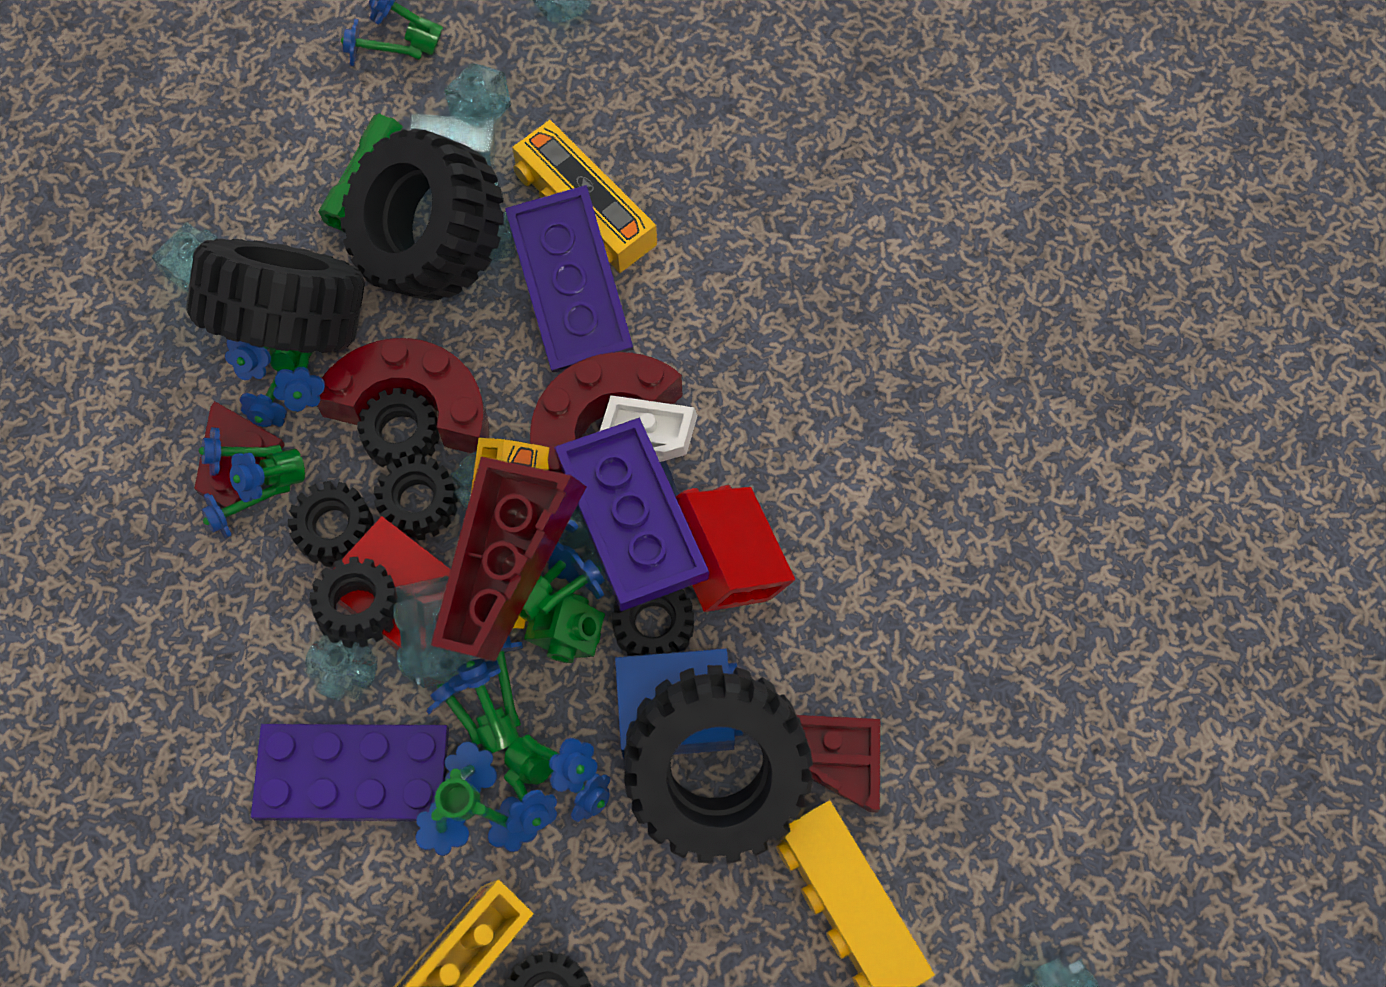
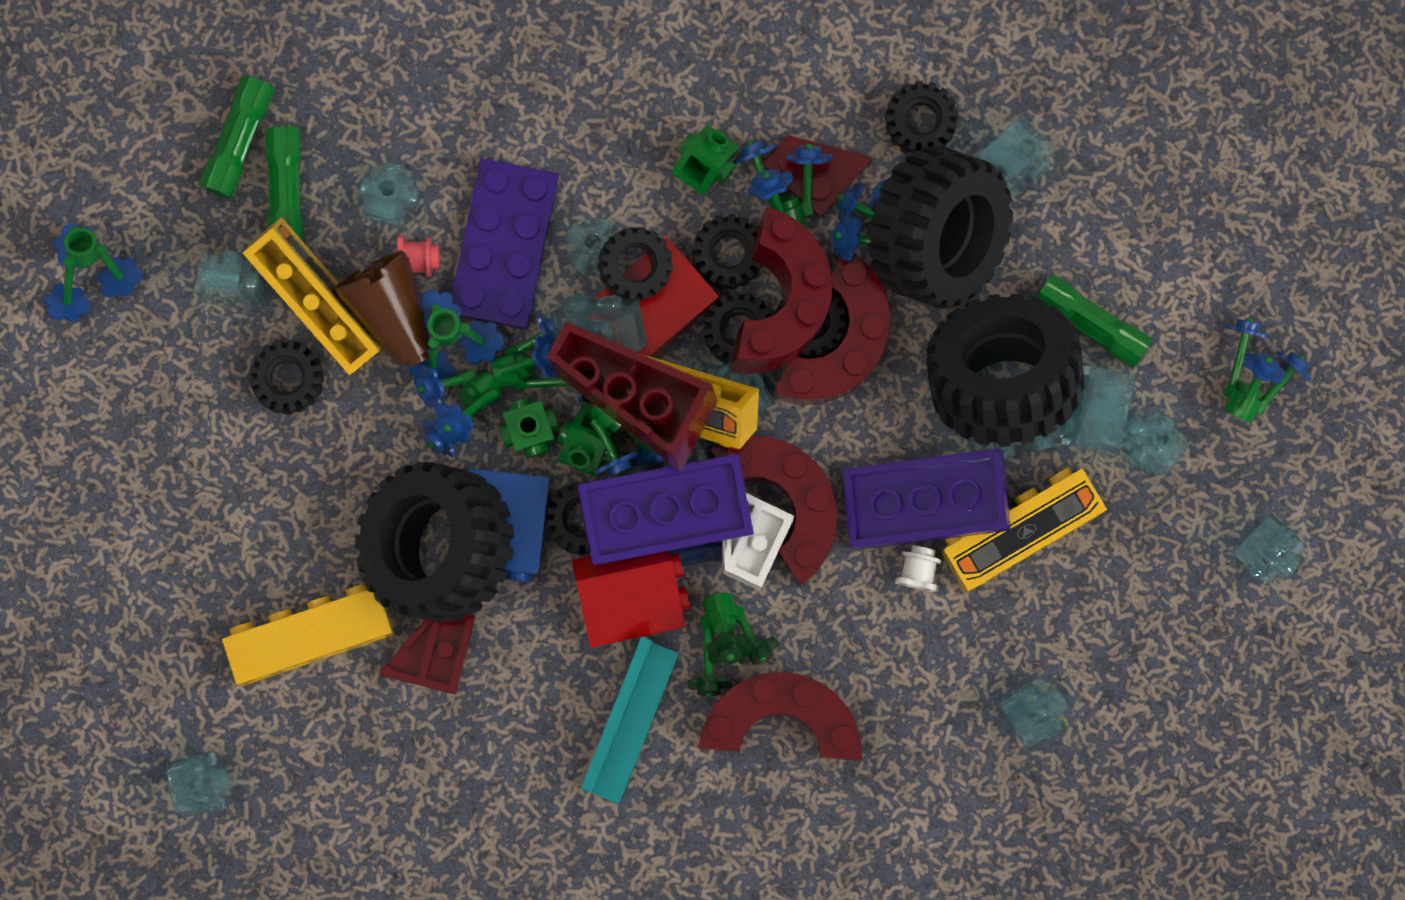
camera: 95 degrees right, 15 degrees up
(154, 341) = (920, 95): none -> black tyre
(227, 561) = (705, 159): none -> green brick
(321, 920) = (393, 208): none -> clear light blue brick
(361, 422) = (807, 291): none -> dark red brick
(378, 868) = (421, 254): none -> coral brick
(441, 879) = (389, 307): none -> reddish brown cone
(566, 710) = (535, 442): none -> green brick
(642, 281) = (919, 569): none -> white brick
(730, 456) = (727, 648): none -> plant
(763, 153) = (1035, 713): none -> clear light blue brick
(806, 401) = (788, 696): none -> dark red brick
(863, 533) = (630, 720): none -> teal fence

